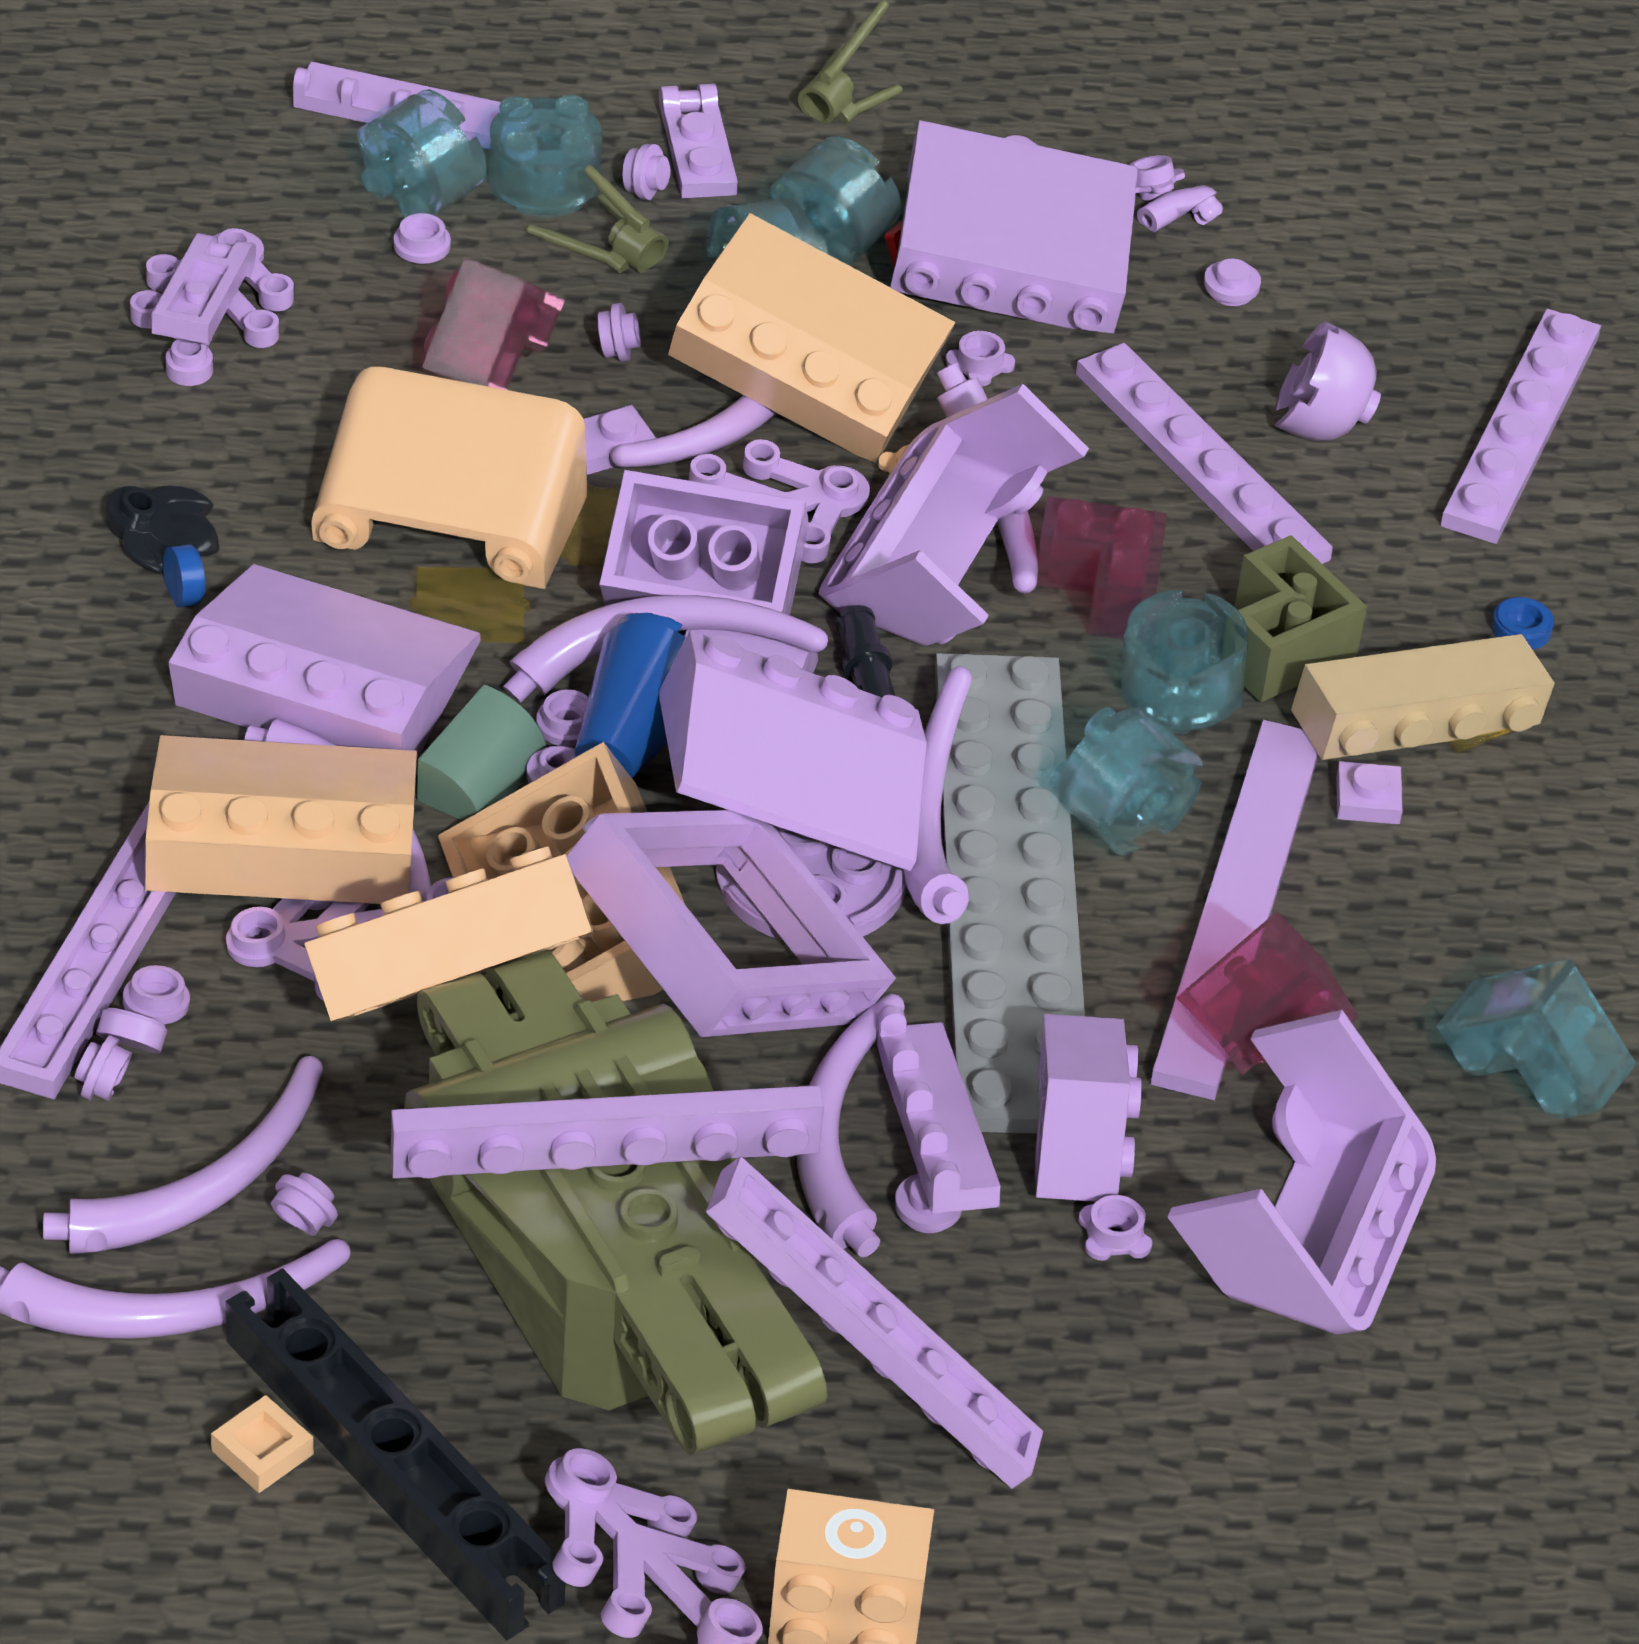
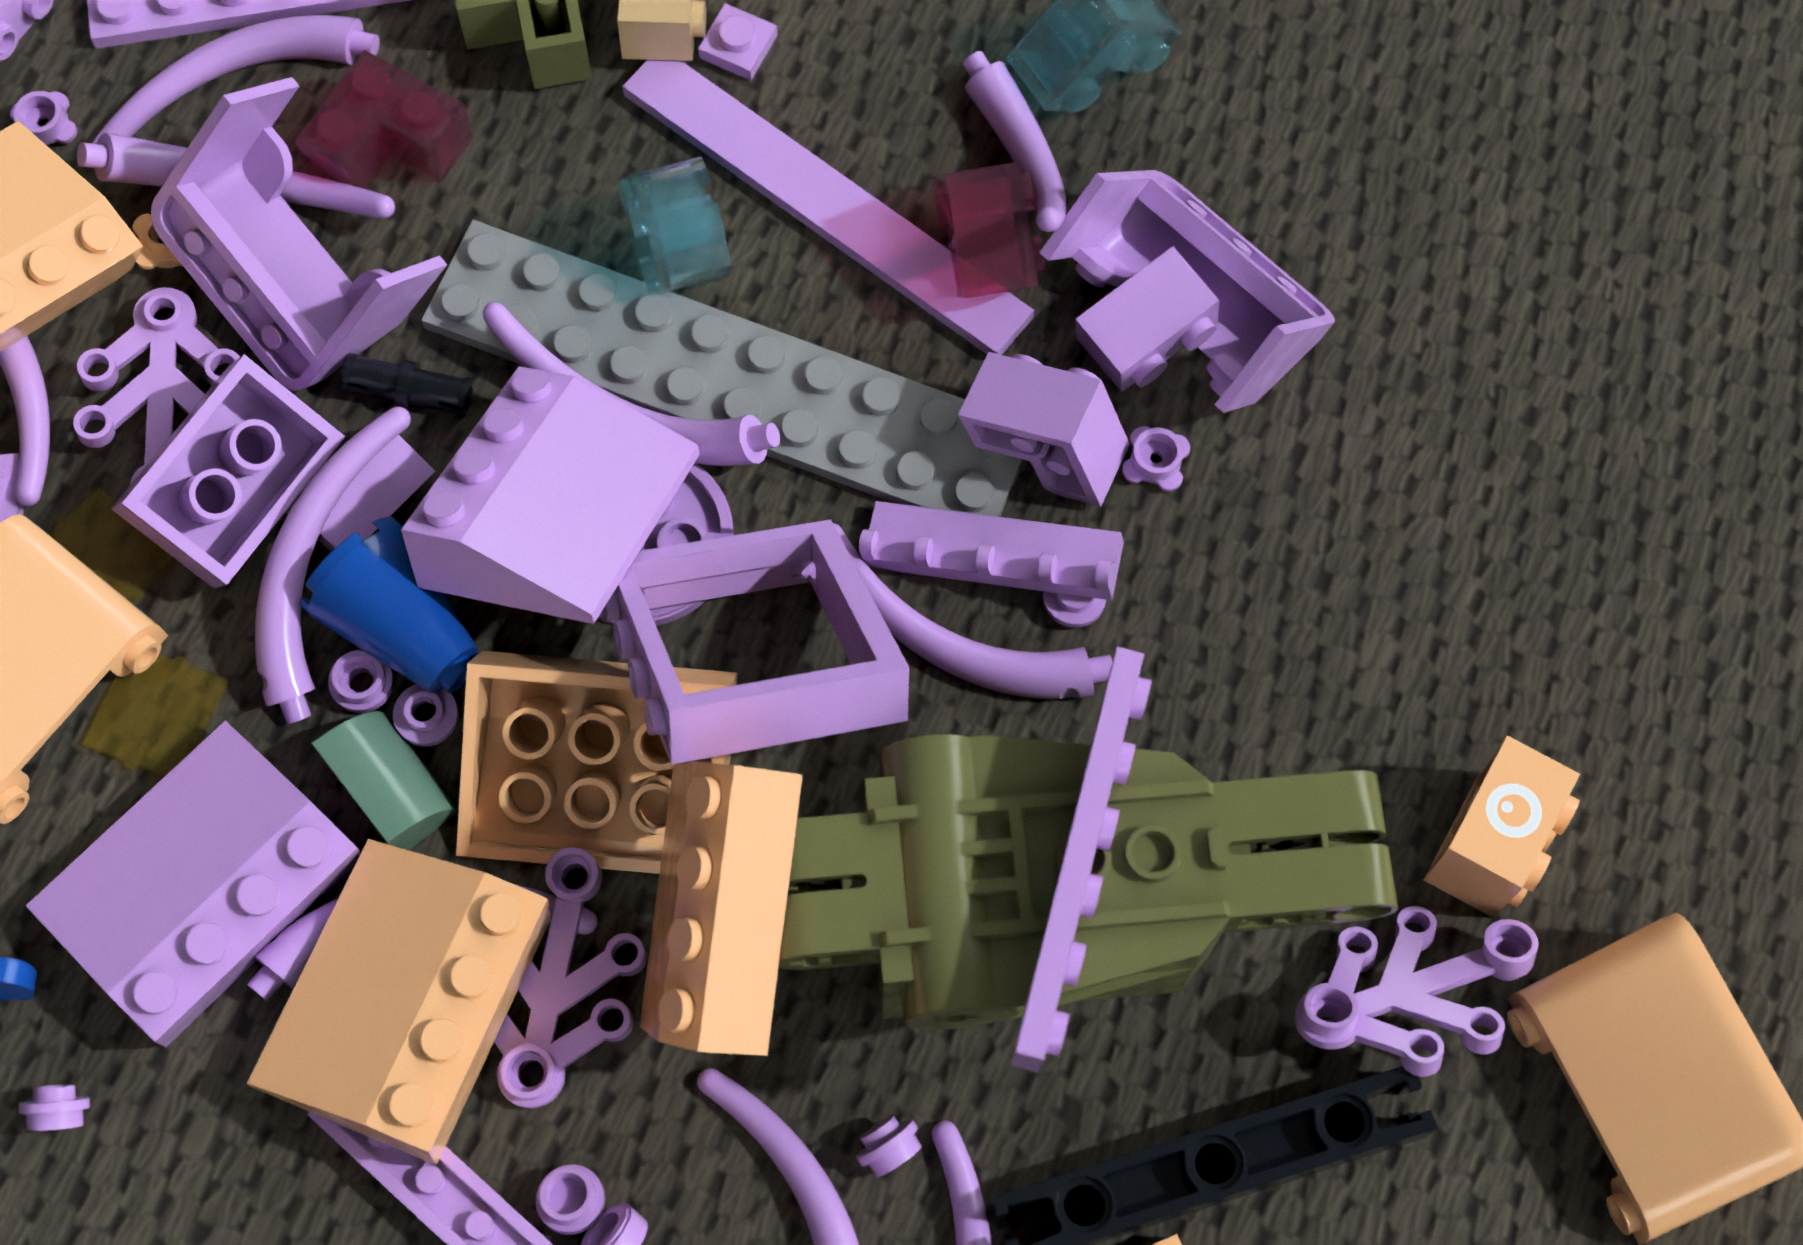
camera: 65 degrees left, 25 degrees up
(89, 642) = (54, 1108): none -> lavender plate
(874, 1322) = (1283, 706): lavender plate -> none
(1149, 472) = (280, 39): none -> lavender animal
(1185, 660) = (541, 116): clear light blue brick -> none
(1245, 1151) = (1149, 321): none -> lavender brick
(1390, 1026) = (1017, 129): none -> lavender animal

